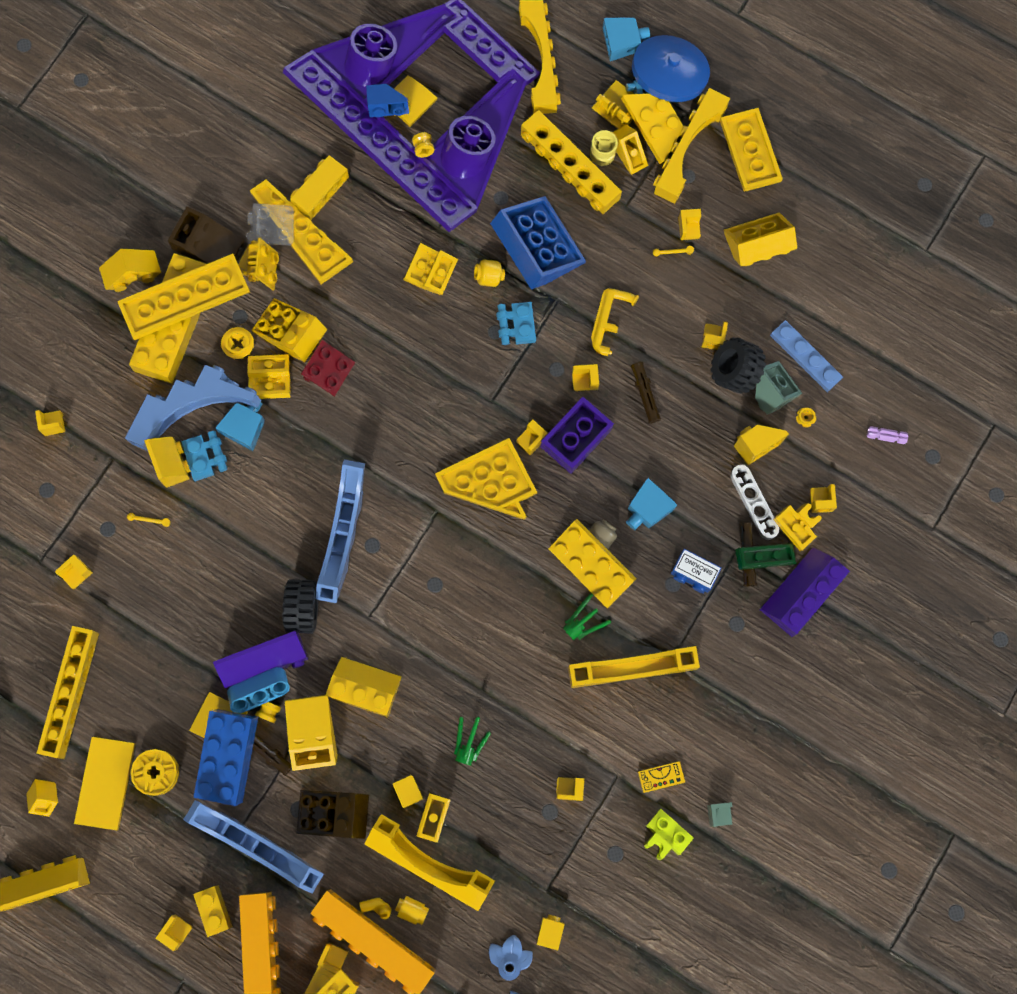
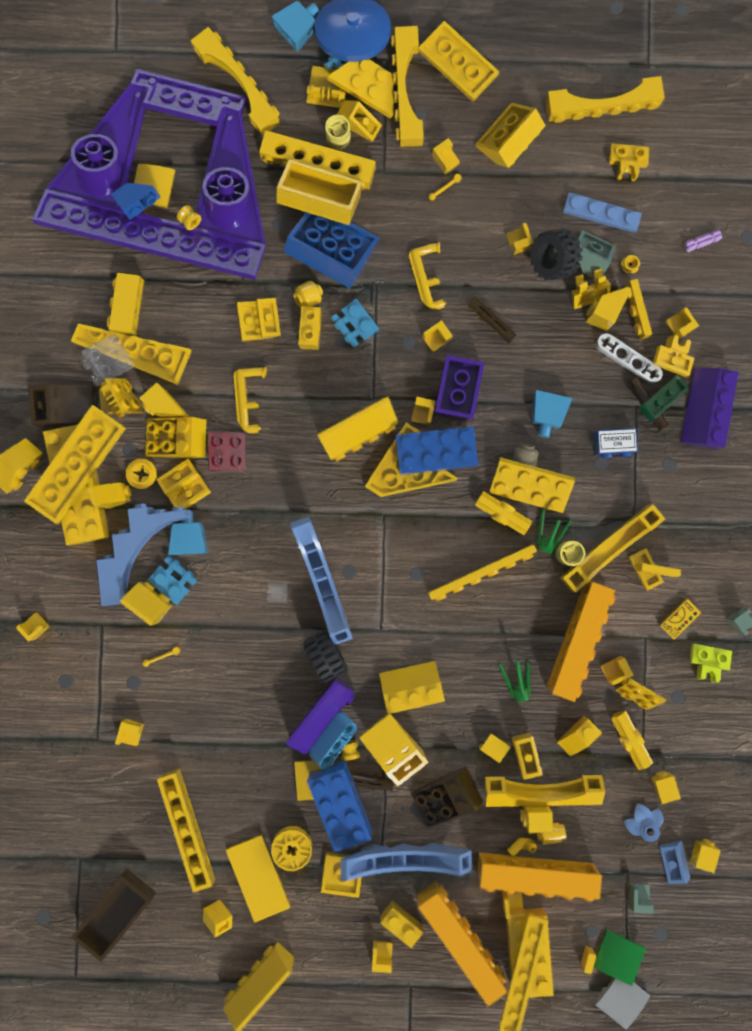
camera: 25 degrees left, 10 degrees up
(179, 834) = (332, 878): none -> yellow tile
(197, 343) = (110, 495): none -> yellow slope
(293, 524) = (277, 592): none -> clear plate
(295, 289) = (160, 403): none -> yellow slope
(371, 329) = (242, 404): none -> yellow piece
(406, 883) = (537, 819): none -> yellow brick
(460, 416) = (359, 429): none -> yellow slope
(472, 303) = (310, 328): none -> yellow brick
(494, 831) = (579, 736): none -> yellow slope
(505, 620) = (475, 576): none -> yellow plate
(520, 478) = (436, 450): none -> blue piece
(544, 866) = (631, 740): none -> yellow piece
(550, 575) = (503, 513): none -> yellow piece
(550, 735) = (580, 641): none -> light orange brick
(553, 189) = (318, 192): none -> yellow piece
(578, 824) = (640, 694): none -> yellow hinge
(590, 648) = (570, 553): none -> light yellow wheel
(655, 709) = (647, 579): none -> yellow tile
(666, 714) = (659, 570): none -> yellow tile
(744, 417) = (585, 293): none -> yellow plate
(788, 461) = (638, 310): none -> yellow plate
(859, 322) = (629, 159): none -> yellow plate
(905, 274) = (563, 105): none -> yellow arch

